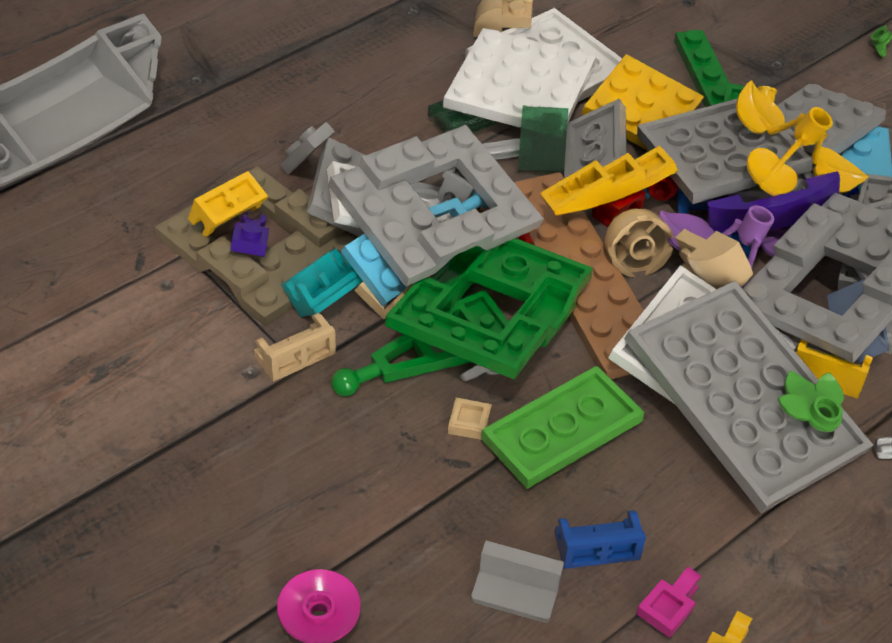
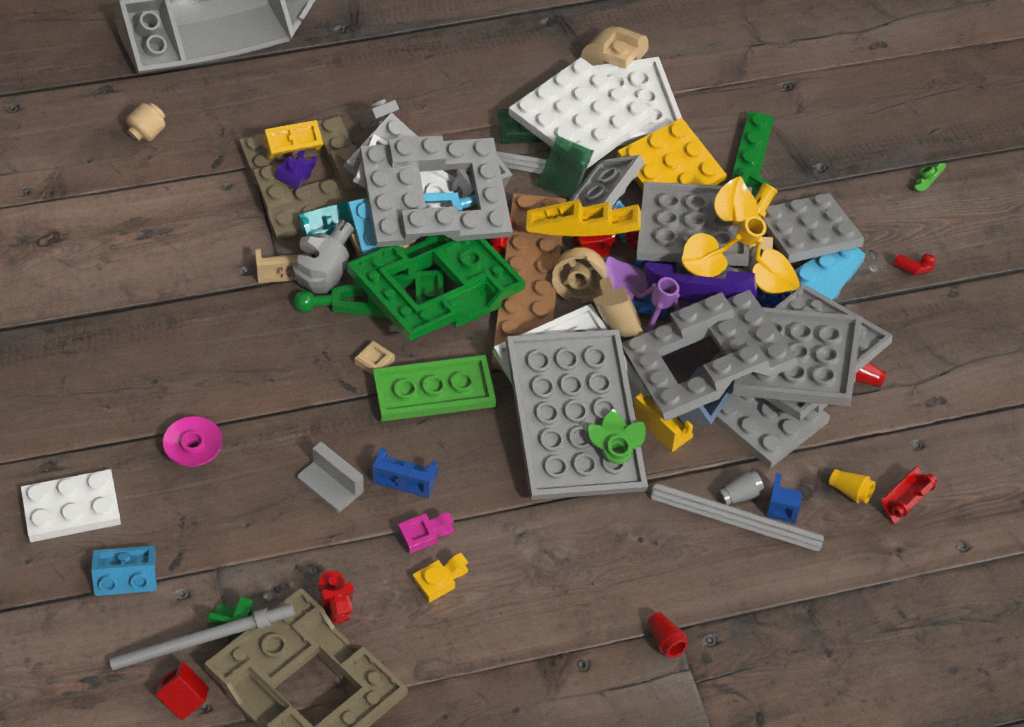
camera: 25 degrees right, 5 degrees up
(29, 243) = (145, 122): none -> tan head
(350, 327) = (331, 259): none -> light grey piece

